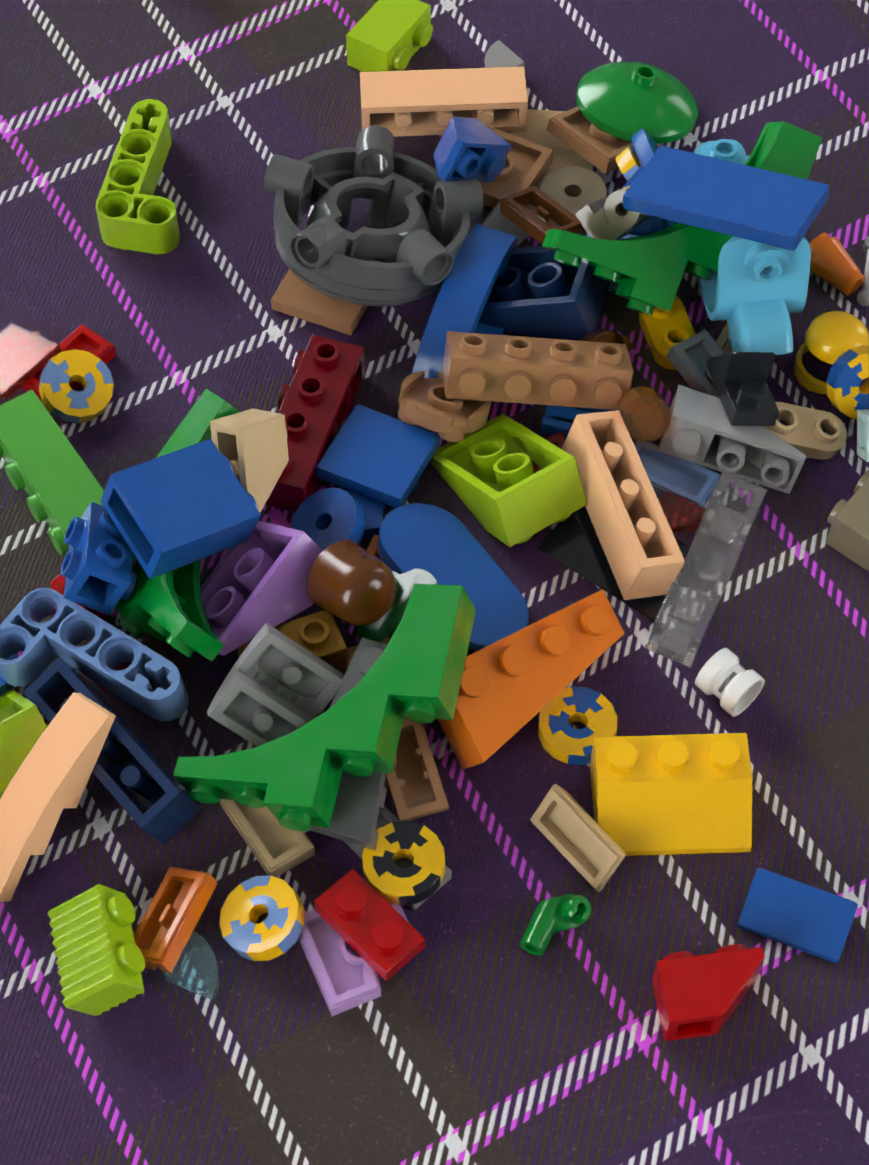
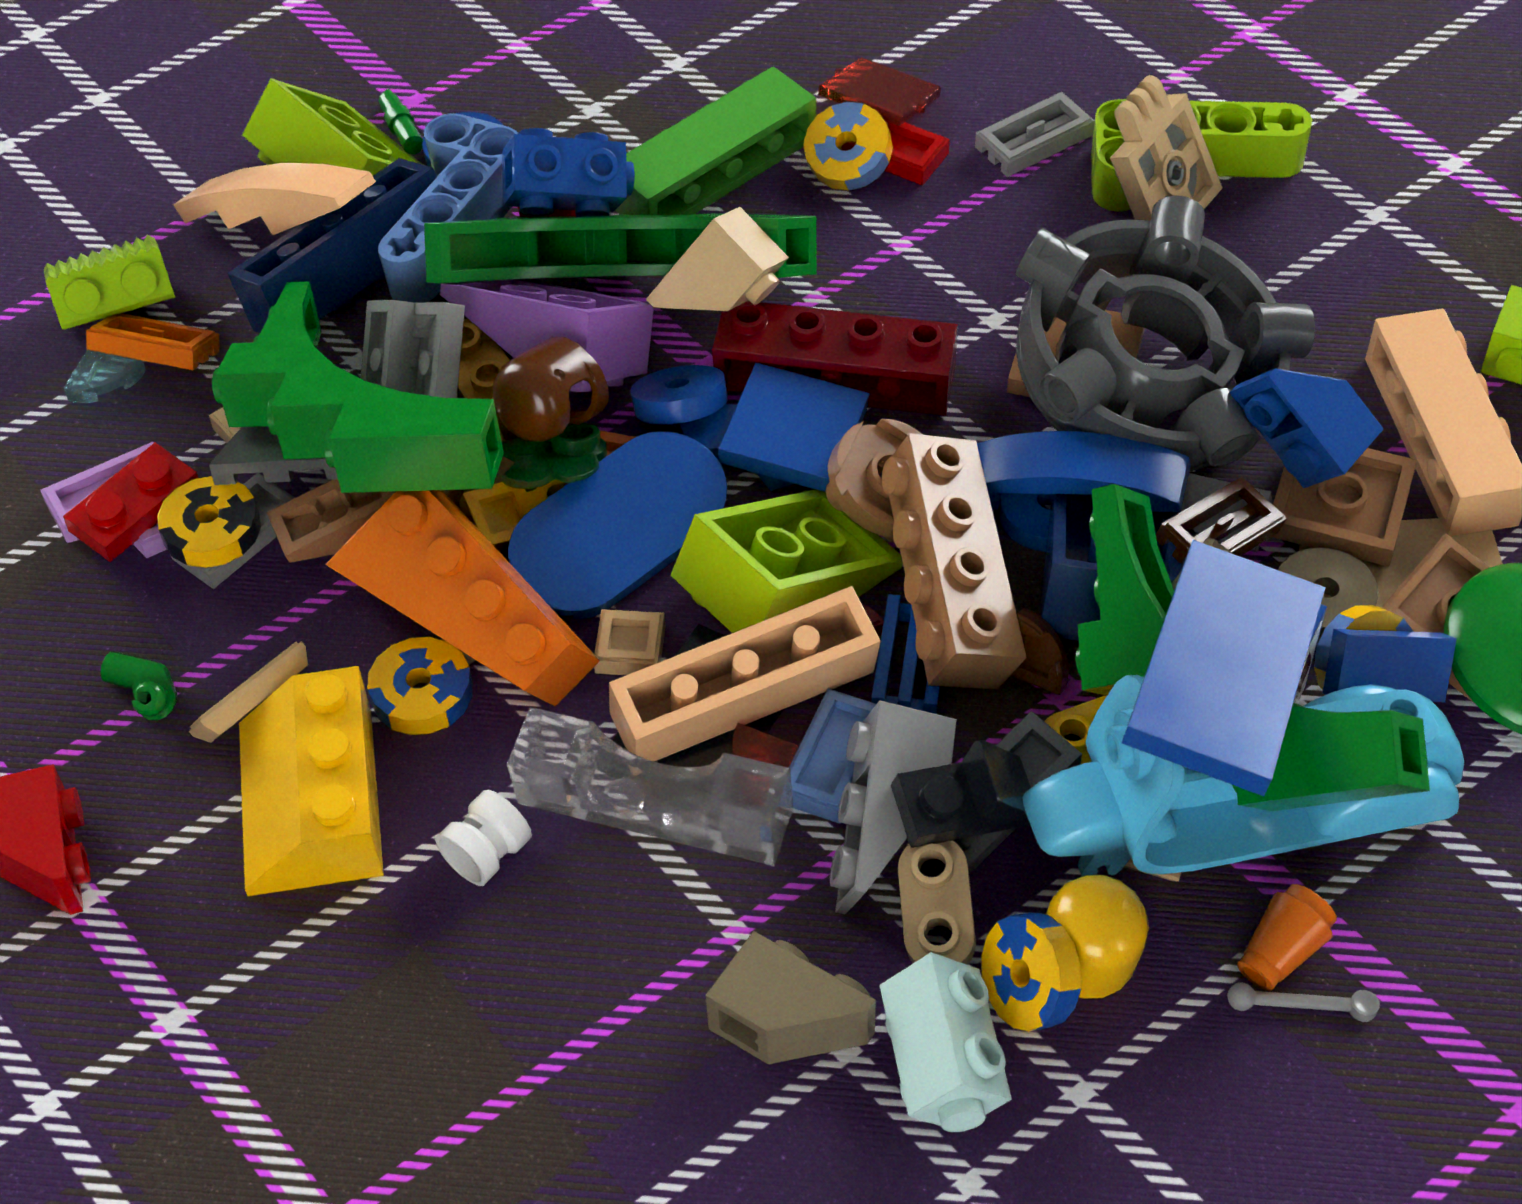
camera: 85 degrees right, 5 degrees down
(96, 297) = (1040, 137): none -> light grey tile
(180, 507) = (611, 204): blue brick -> none
(182, 191) = (1161, 150): none -> tan piece
(273, 935) = (150, 414): yellow piece -> none
(554, 586) = (628, 641): none -> tan tile
(645, 413) = (893, 676): clear orange brick -> none
(797, 915) = (142, 945): blue slope -> none

